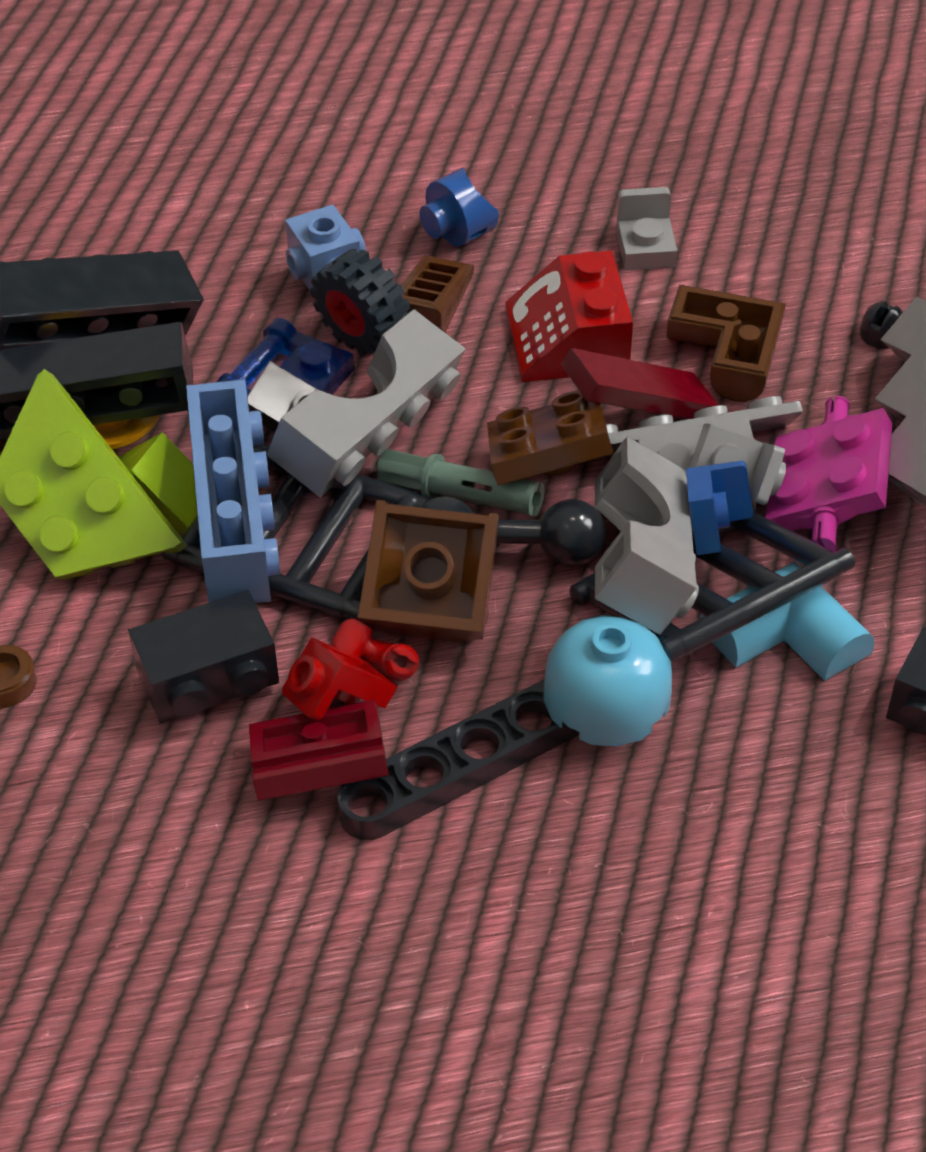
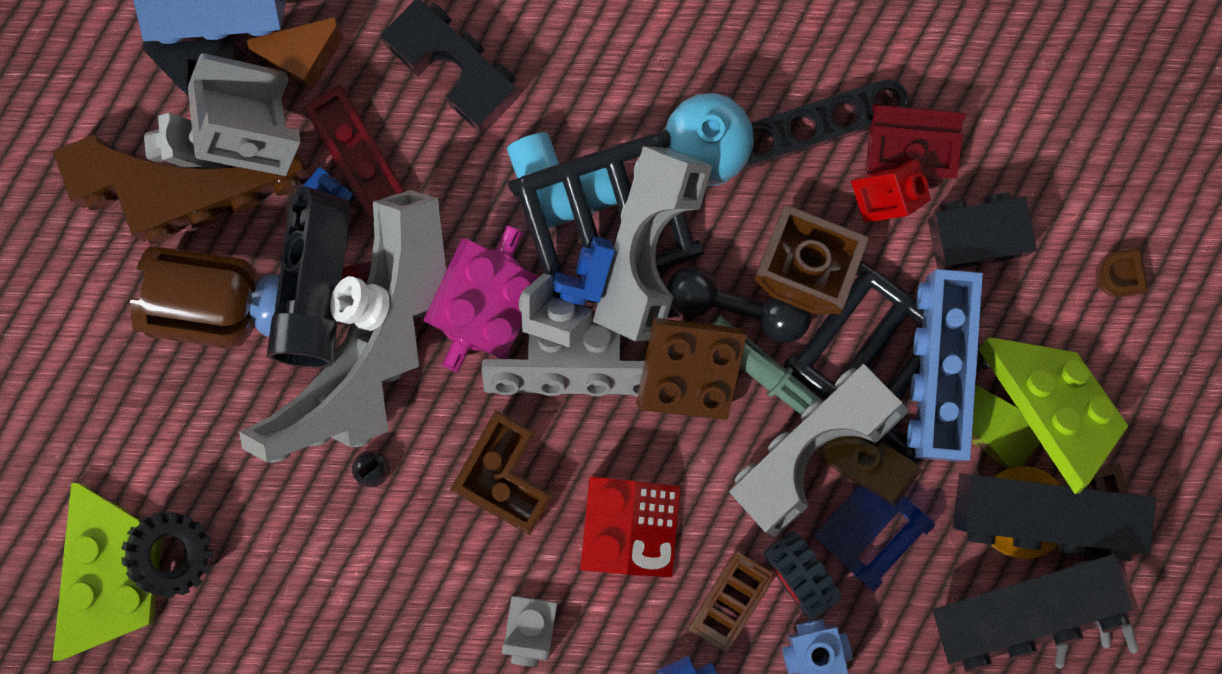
camera: 165 degrees left, 35 degrees up
(393, 660) = (844, 214): red arm -> none
(636, 384) = (602, 412): dark red tile -> none

